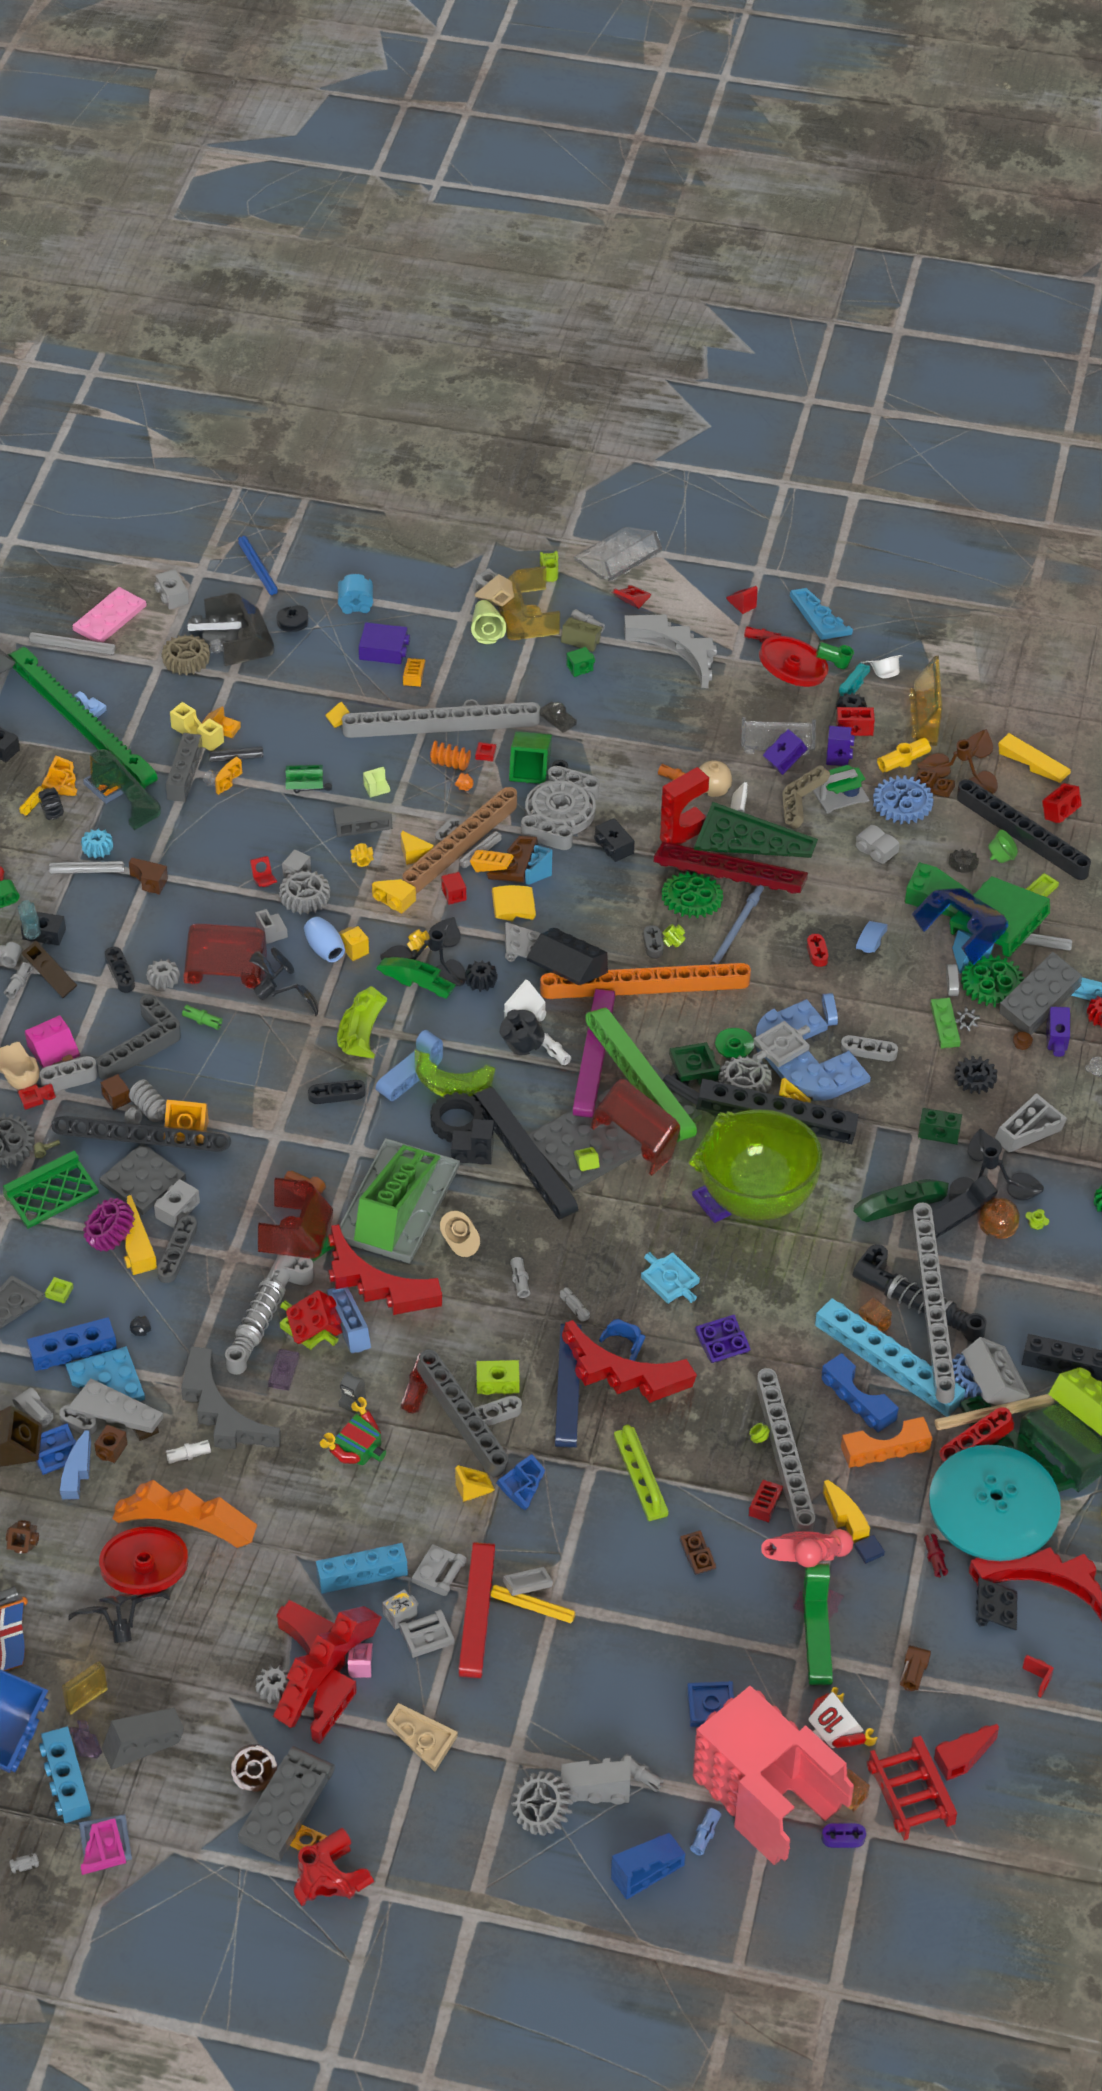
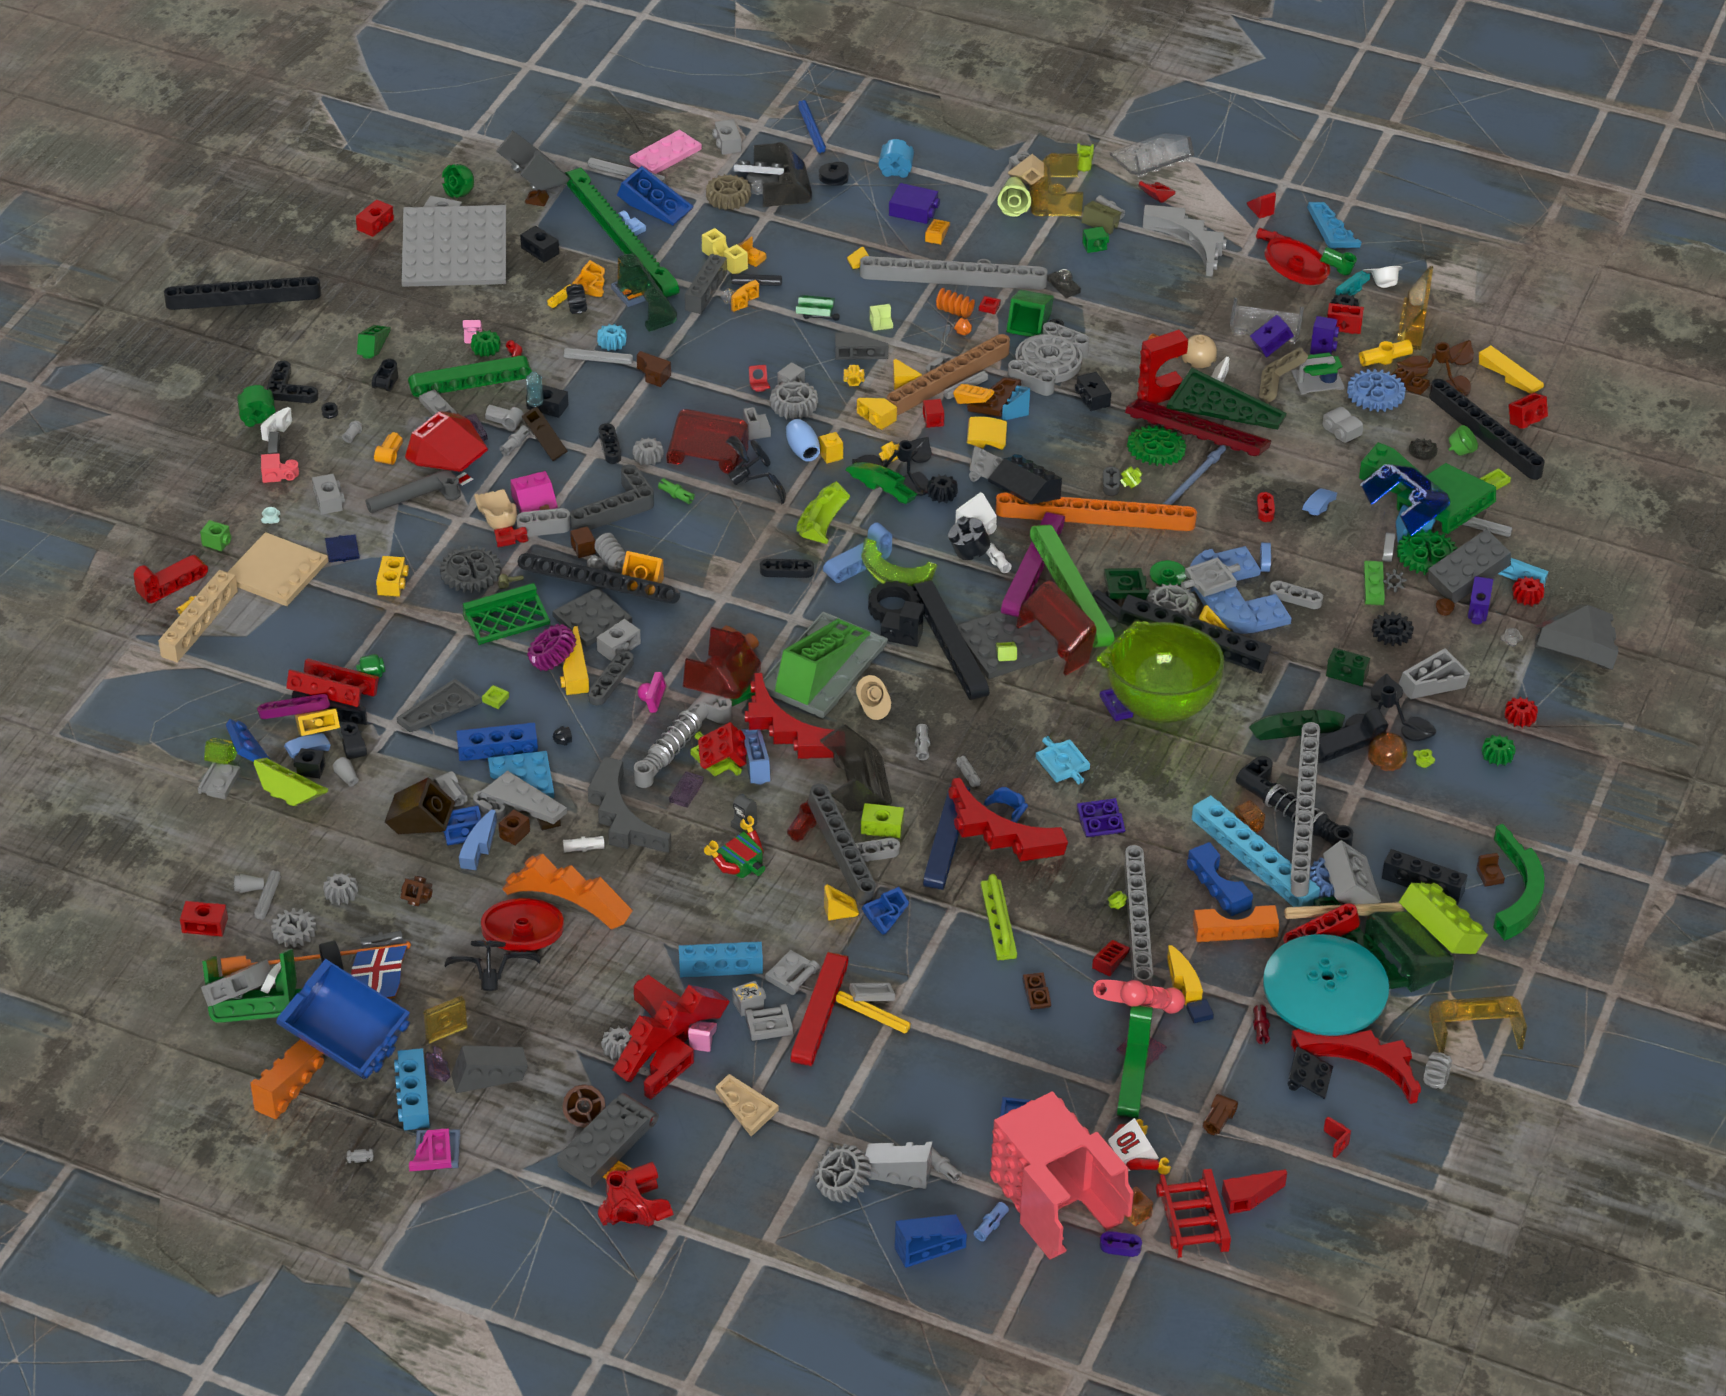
camera: 10 degrees right, 5 degrees down
(108, 671) = (653, 197): none -> blue slope
(225, 1260) = (653, 692): none -> dark pink tile
(466, 1322) = (863, 770): none -> clear smoke windscreen

